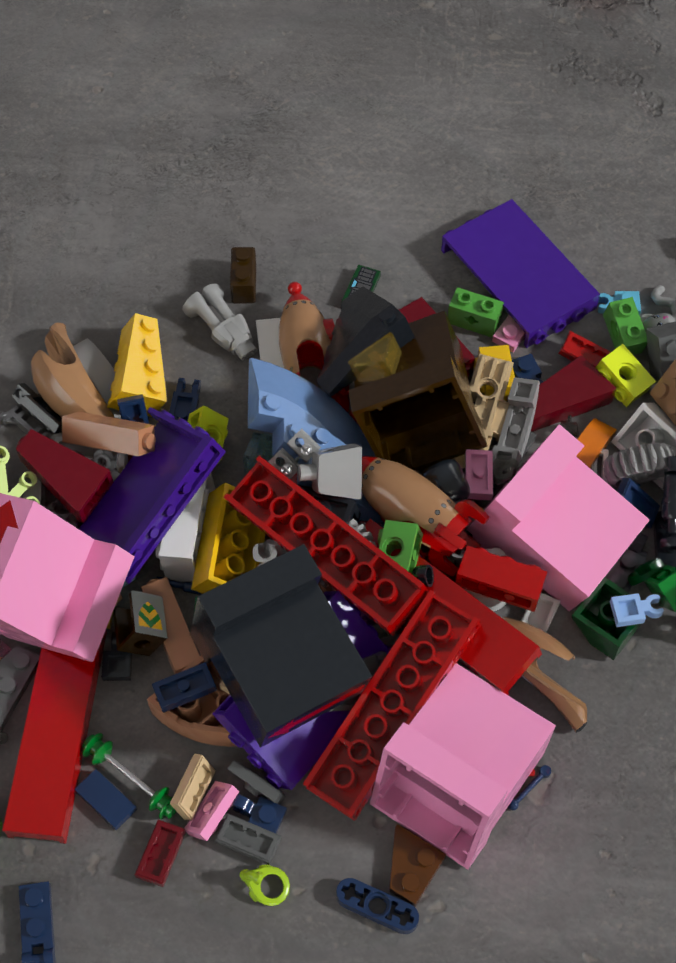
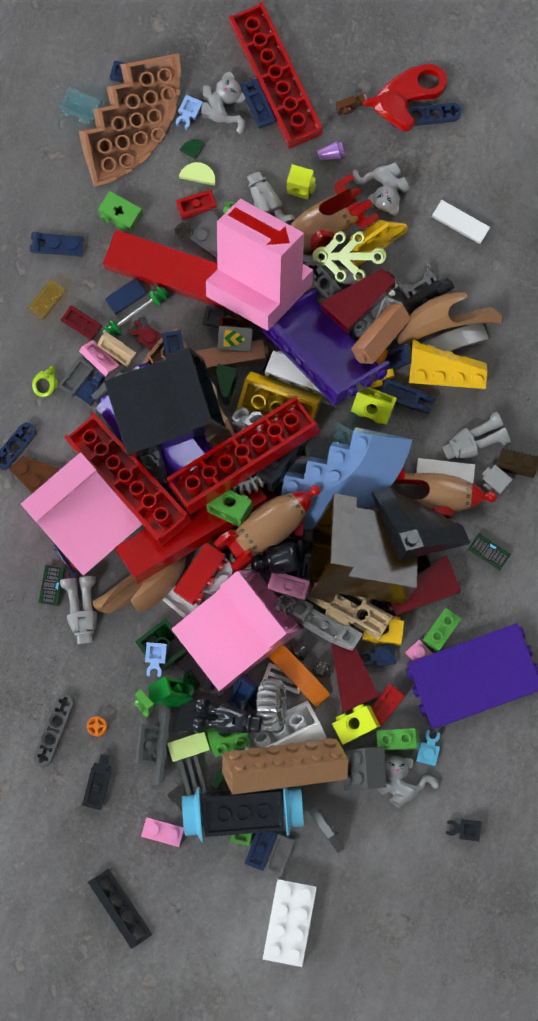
camera: 110 degrees right, 20 degrees up
(131, 916) = (46, 299): none -> clear yellow plate
(162, 751) = (147, 337): none -> dark red plate
(271, 293) = (495, 480): none -> light grey brick
(304, 452) = (316, 450): light grey piece -> none
(335, 471) = (295, 473): light grey torso -> none
(377, 360) = (383, 529): clear yellow slope -> none
(424, 574) = (207, 518): black hinge -> none
(571, 796) = (51, 586): none -> tile
(609, 740) = (81, 622): none -> light grey piece

